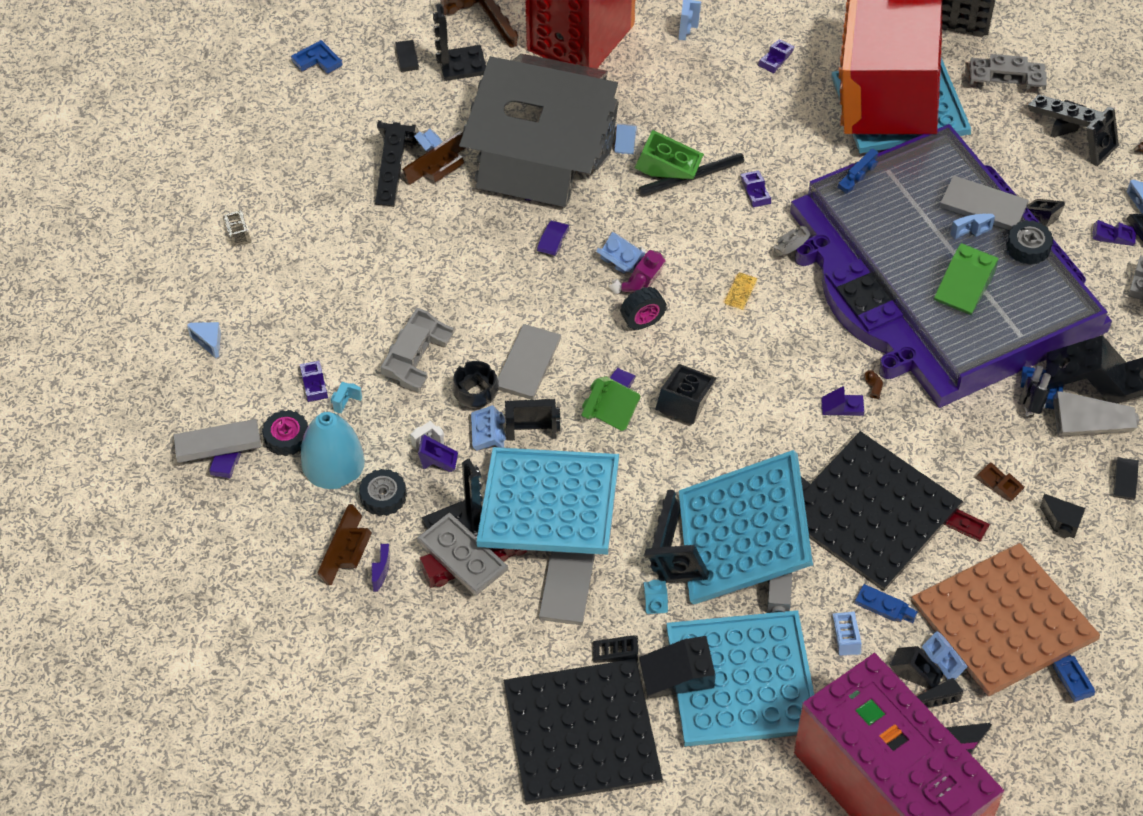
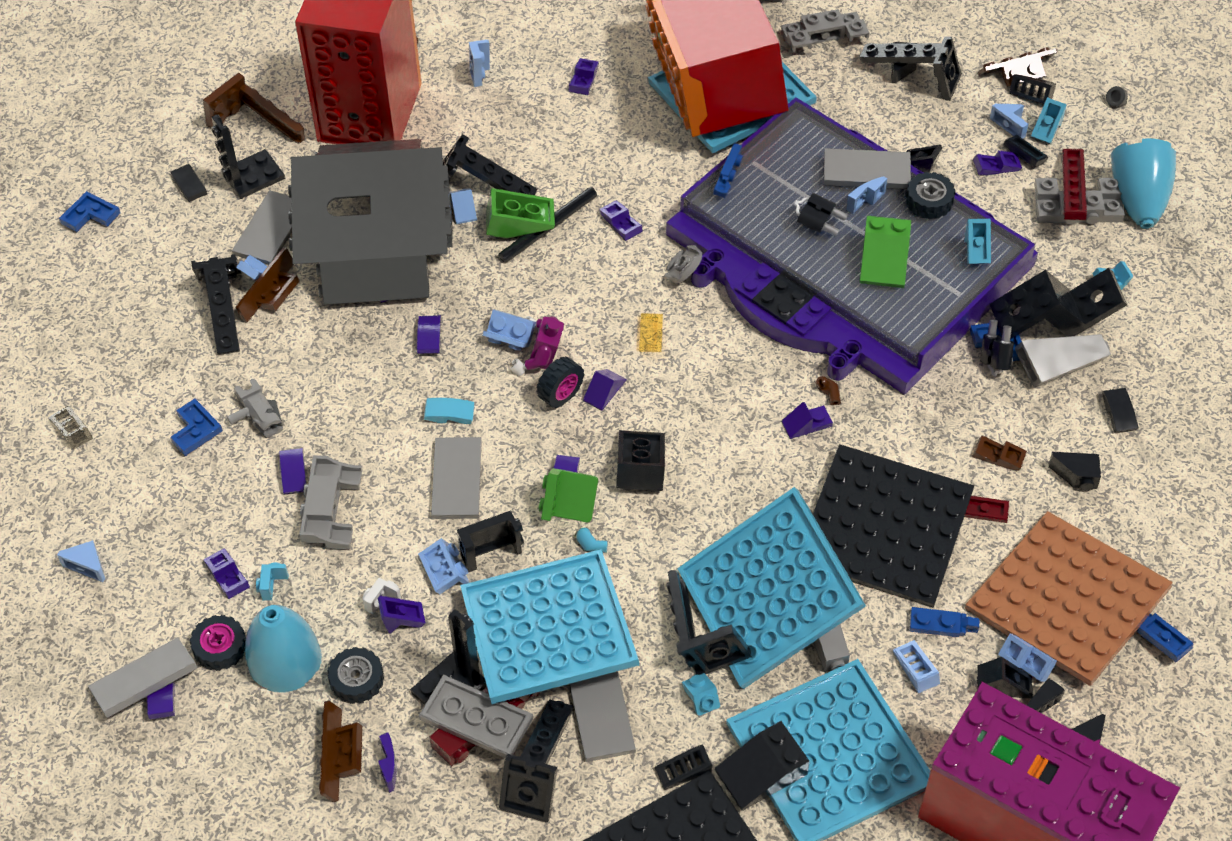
camera: 20 degrees left, 0 degrees up
(336, 260) = (199, 429): none -> blue plate
(392, 260) = (262, 411): none -> light grey piece
(397, 315) = (292, 470): none -> dark purple slope
(452, 113) = (267, 229): none -> light grey tile
(468, 377) = (409, 508): black piece -> none
(483, 613) = (529, 779): none -> black bracket
(542, 303) = (452, 409): none -> medium azure slope
(614, 447) = (588, 542): none -> medium azure arm
(653, 112) = (484, 169): none -> black bracket
(680, 324) = (603, 388): none -> dark purple slope
(921, 229) = (817, 213): none -> black piece
(1053, 293) = (978, 241): none -> medium azure slope

